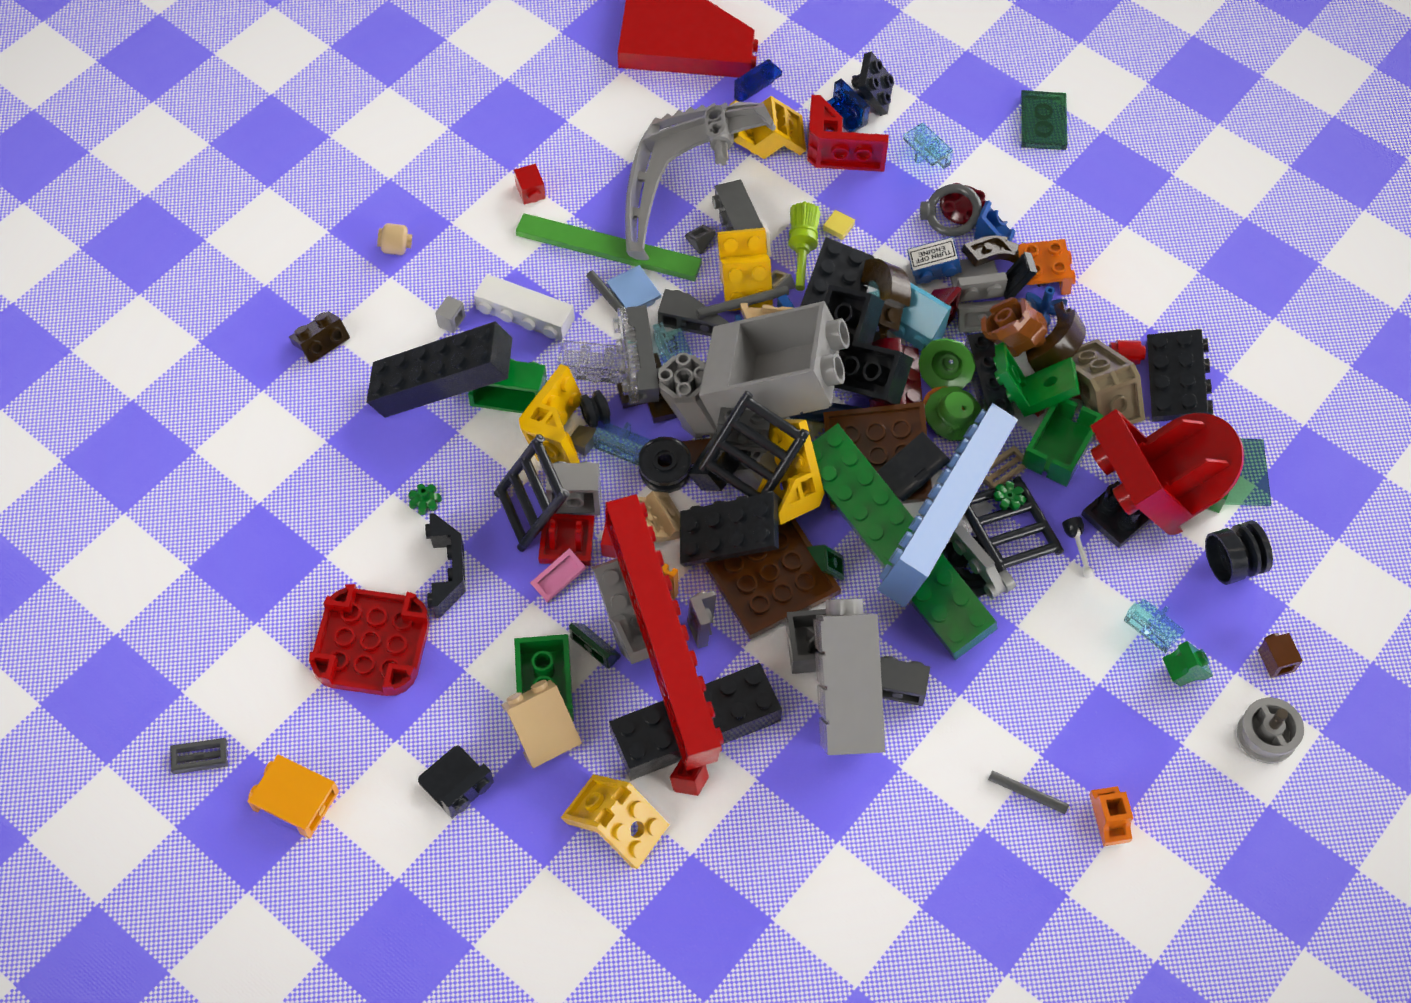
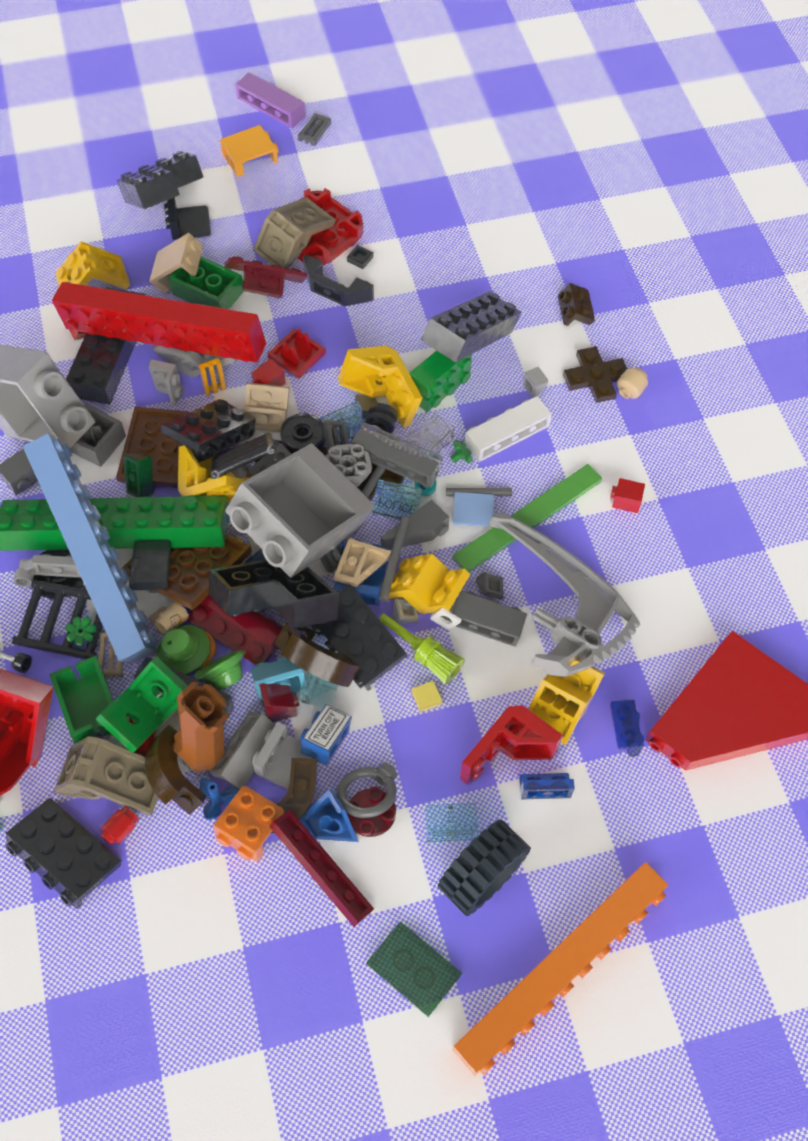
camera: 125 degrees right, 0 degrees up
(180, 837) = (270, 100): none -> medium lavender brick
(383, 571) = (360, 256): none -> black tile
(398, 279) = (595, 374): none -> dark brown plate
(412, 633) = (289, 231): none -> dark tan bracket
(424, 498) = (396, 301): green plant -> none
(437, 845) = (160, 181): none -> black brick
(492, 623) = (264, 278): none -> dark red bracket
(548, 508) = (334, 332): black bar -> none
(558, 575) = (273, 332): bright pink tile -> none
(580, 328) = (461, 452): none -> green plant
(583, 485) = (322, 366): light grey brick -> none
(653, 423) = (331, 434): none -> dark grey tile
(874, 83) = (554, 825): black plate -> none
(941, 432) = (168, 617): none -> tan piece
(951, 92) = (483, 867): none -> black wheel
(965, 39) = (557, 971): none -> orange brick
(1019, 275) = (254, 784): black tile -> none
(1033, 201) = (321, 867): none -> dark red plate

